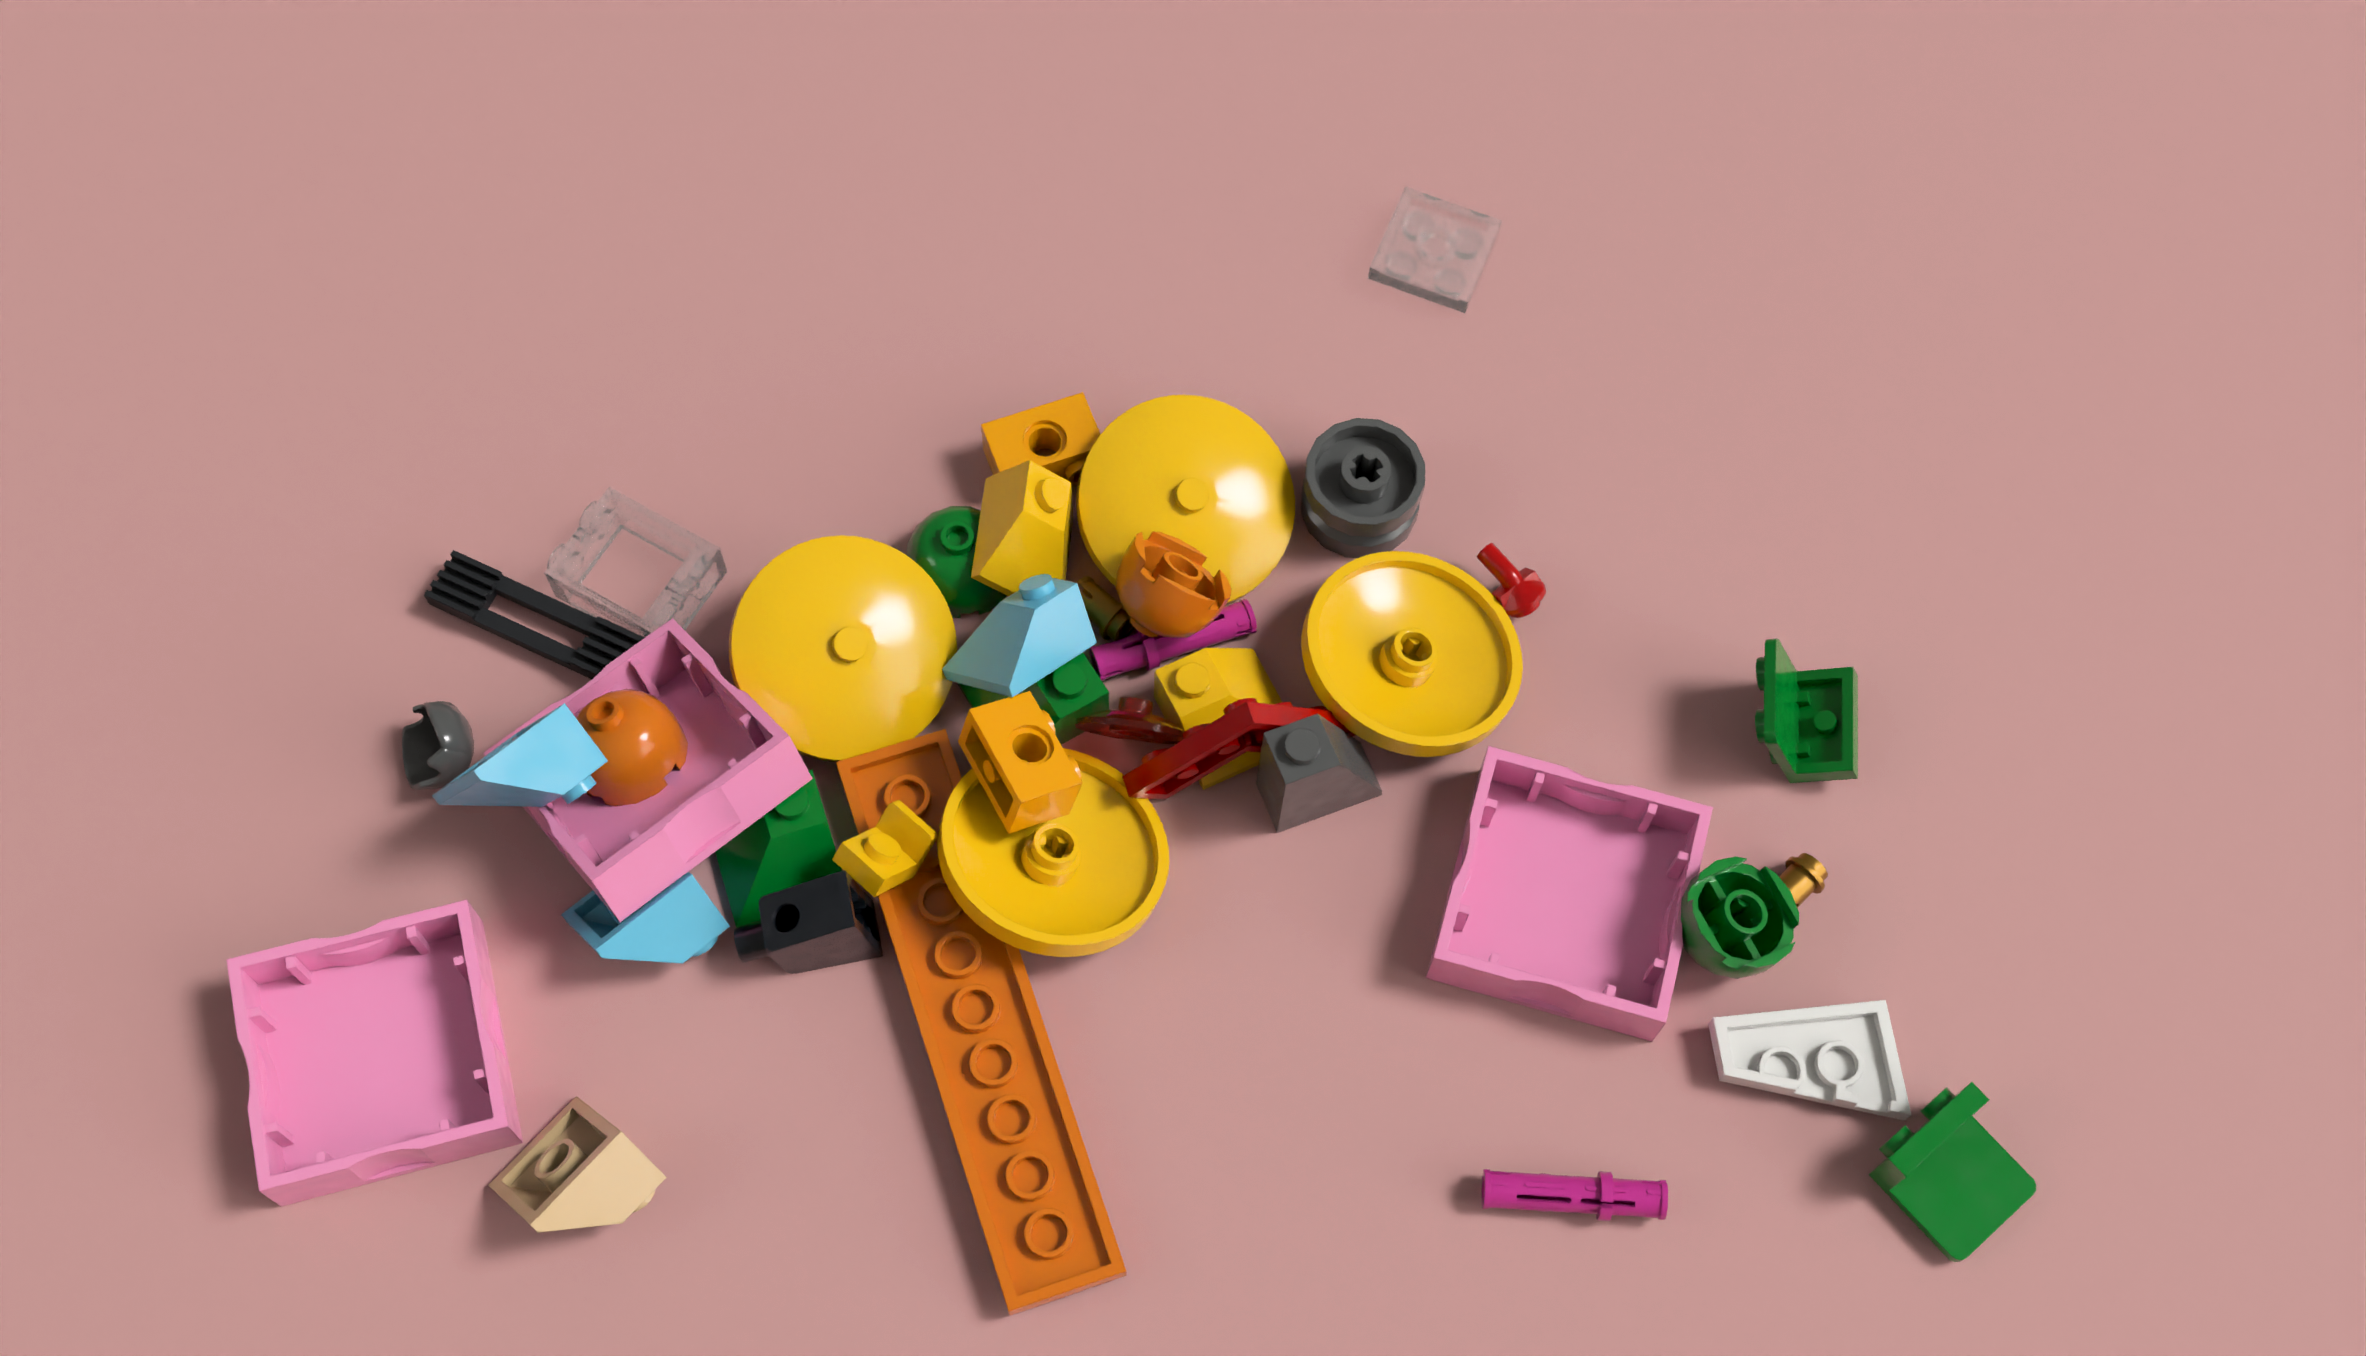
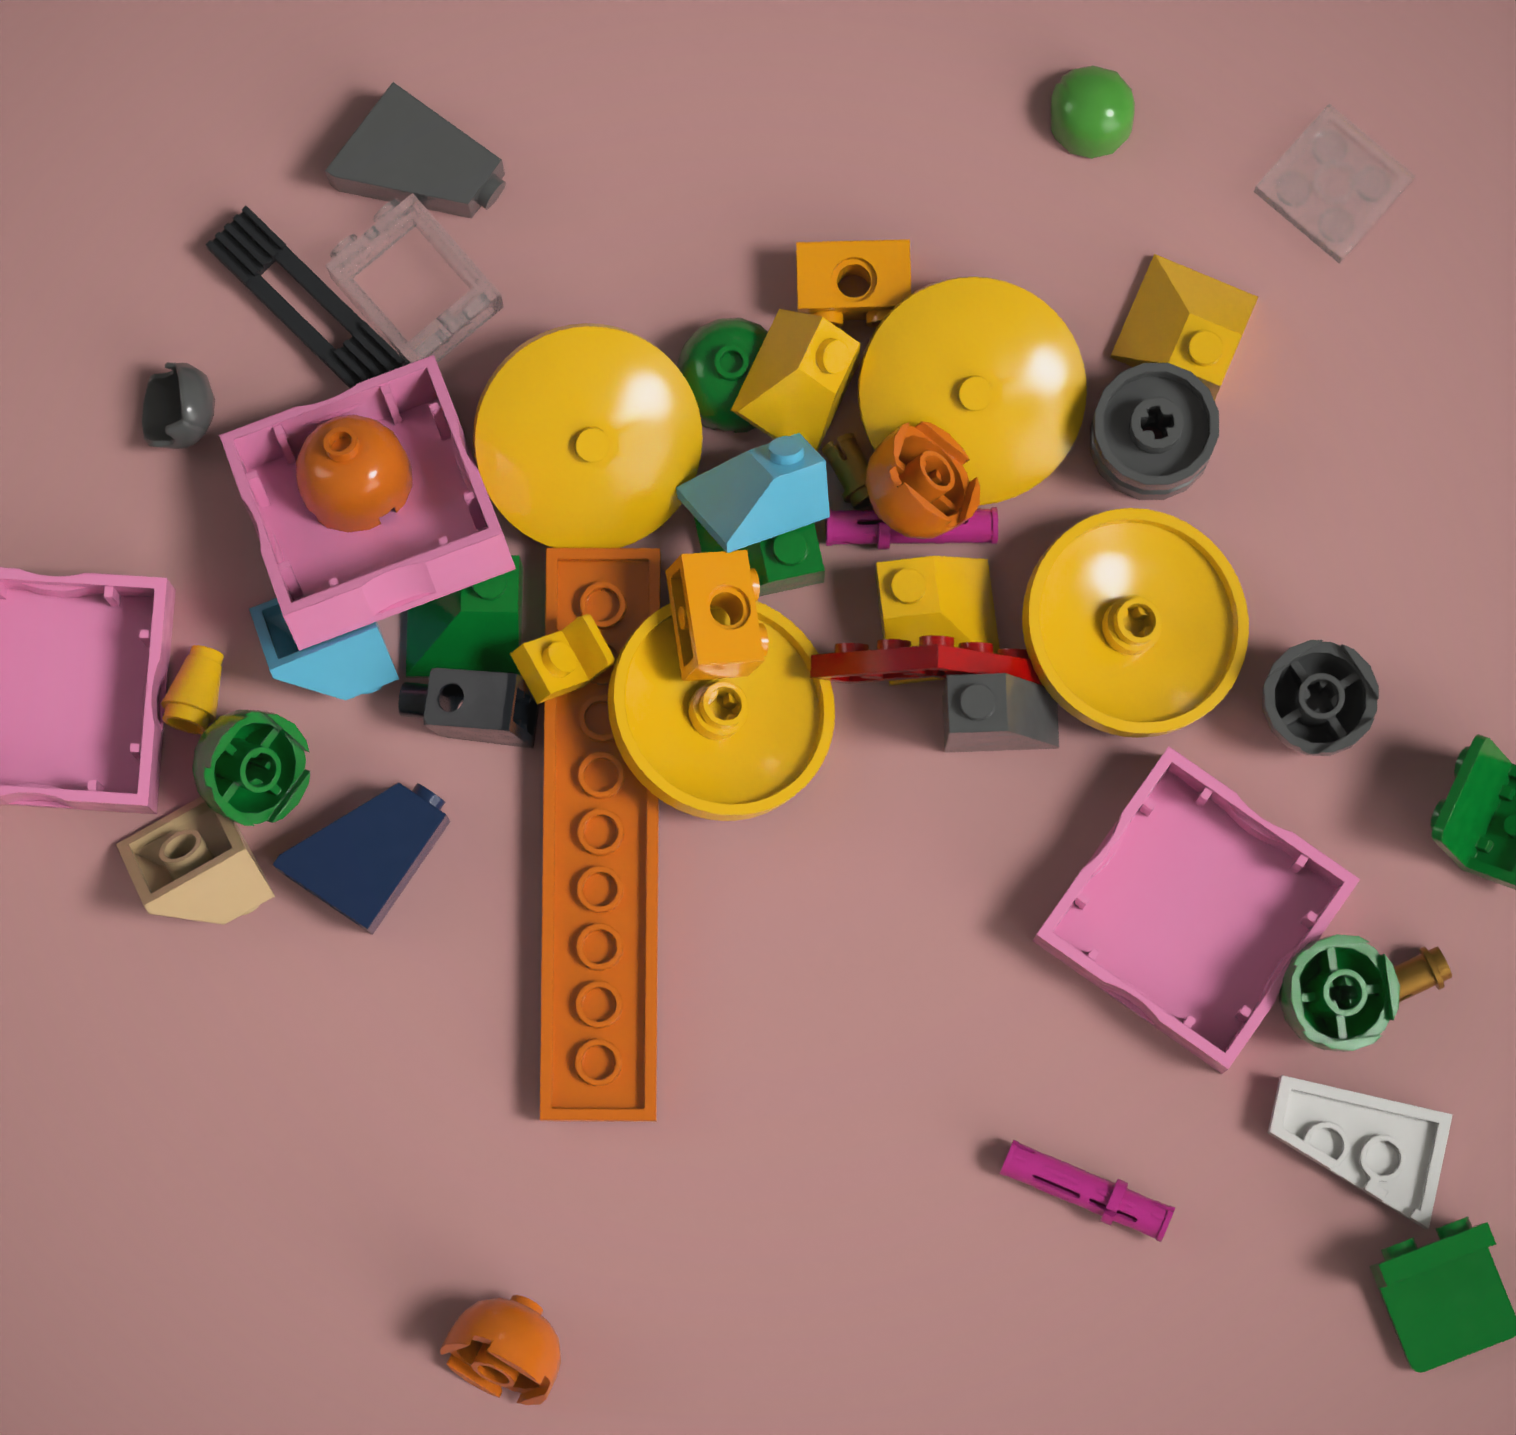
camera: 25 degrees right, 15 degrees up
(528, 1008) = (195, 691): none -> yellow cone
(531, 767) = (257, 473): medium azure slope -> none
(597, 451) = (416, 151): none -> dark grey slope
(605, 1054) = (251, 766): none -> green cylinder
(749, 1106) = (368, 854): none -> dark blue slope
(1131, 721) = (837, 605): clear red dish -> none
(1203, 255) = (1092, 111): none -> bright green hair
(1349, 388) = (1185, 322): none -> yellow slope
(1519, 590) = (1270, 589): red plate -> none
(1607, 662) = (1320, 698): none -> dark grey cylinder

